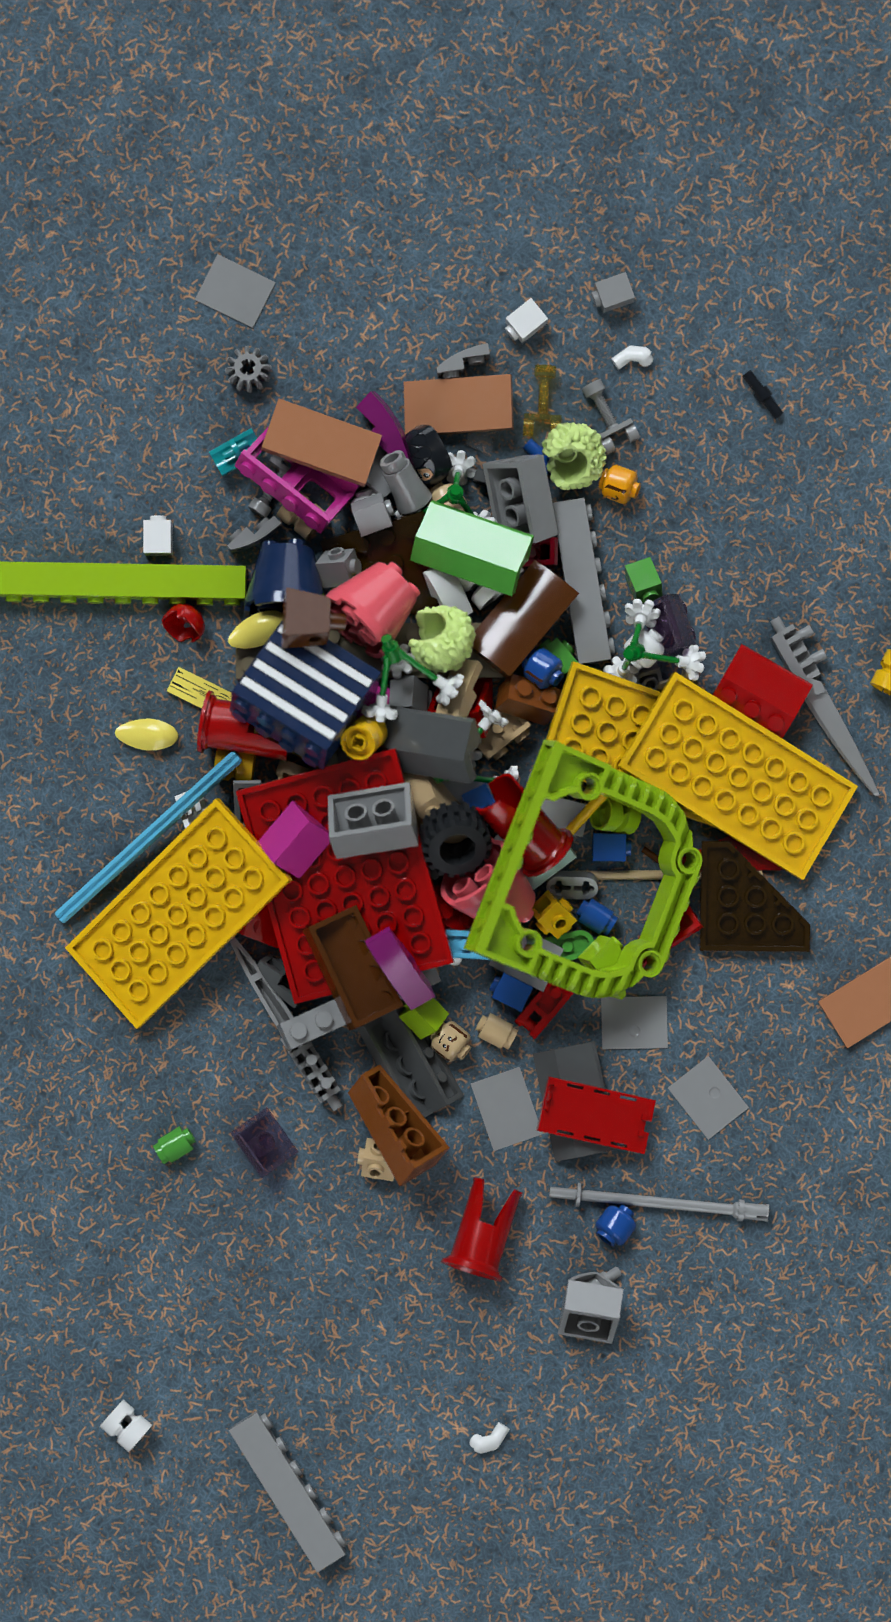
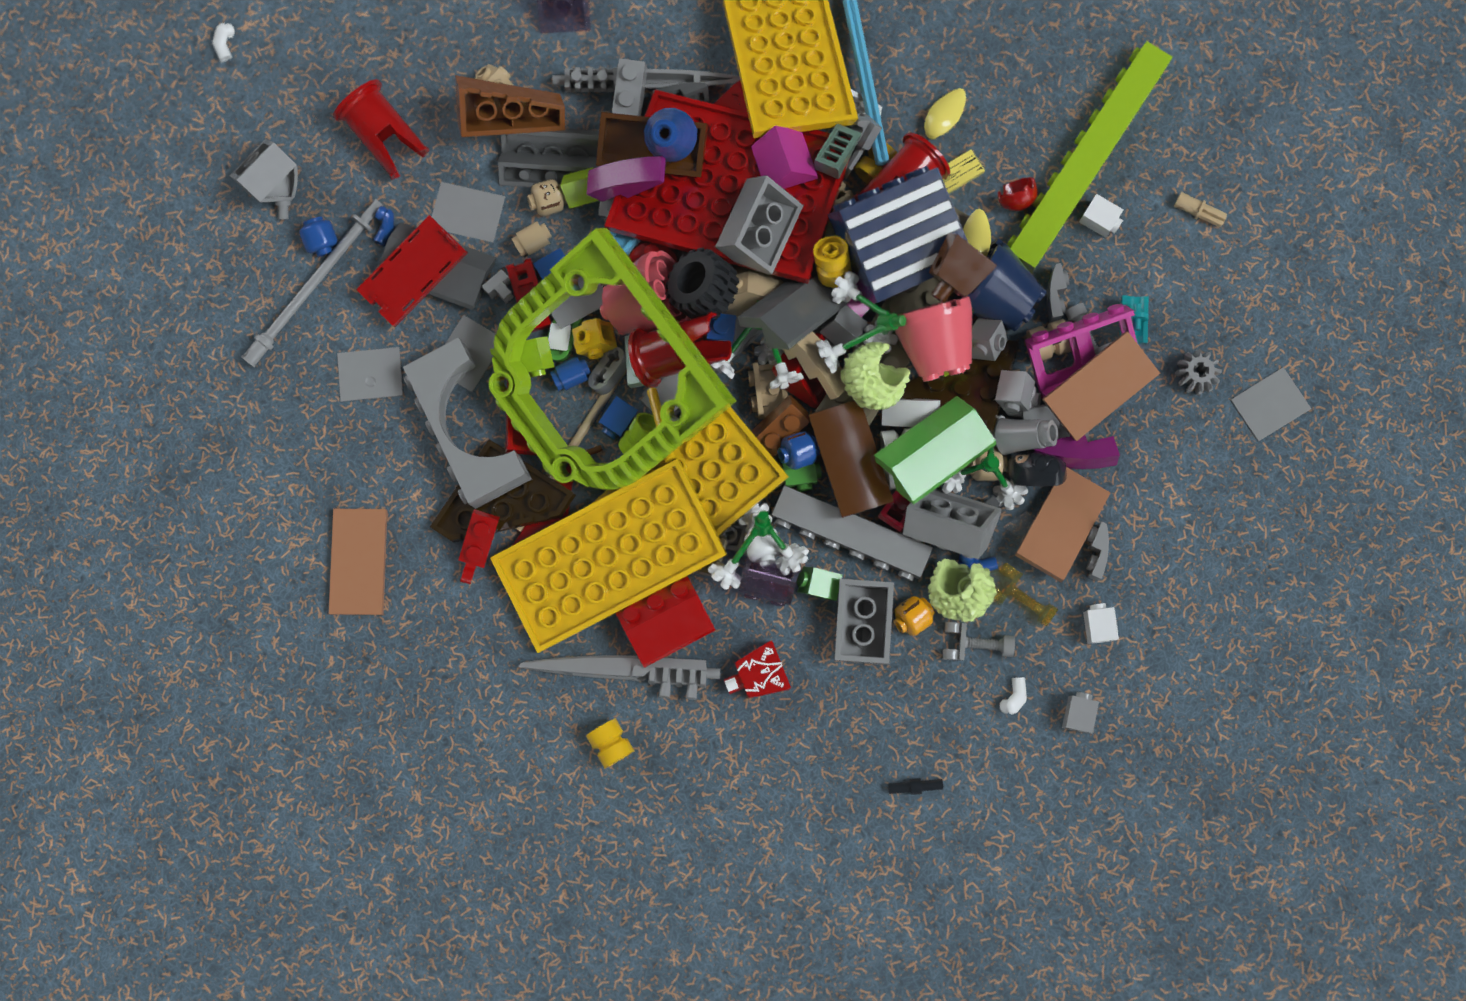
camera: 130 degrees right, 5 degrees down
(95, 454) = (1200, 209): none -> tan axle
(219, 787) = (869, 130): none -> light grey tile
(279, 798) = (832, 168): none -> sand green slope
(339, 951) = (681, 138): none -> blue cone
(558, 1032) = (498, 286): none -> light grey tile
(567, 1170) = (386, 227): none -> blue arm
(572, 946) = (558, 337): none -> white sticker
(653, 521) = (864, 621): none -> light grey slope
(683, 1032) = (433, 381): none -> light grey arch
(753, 585) = (759, 673): none -> red torso
(798, 898) = (477, 543): none -> red plate

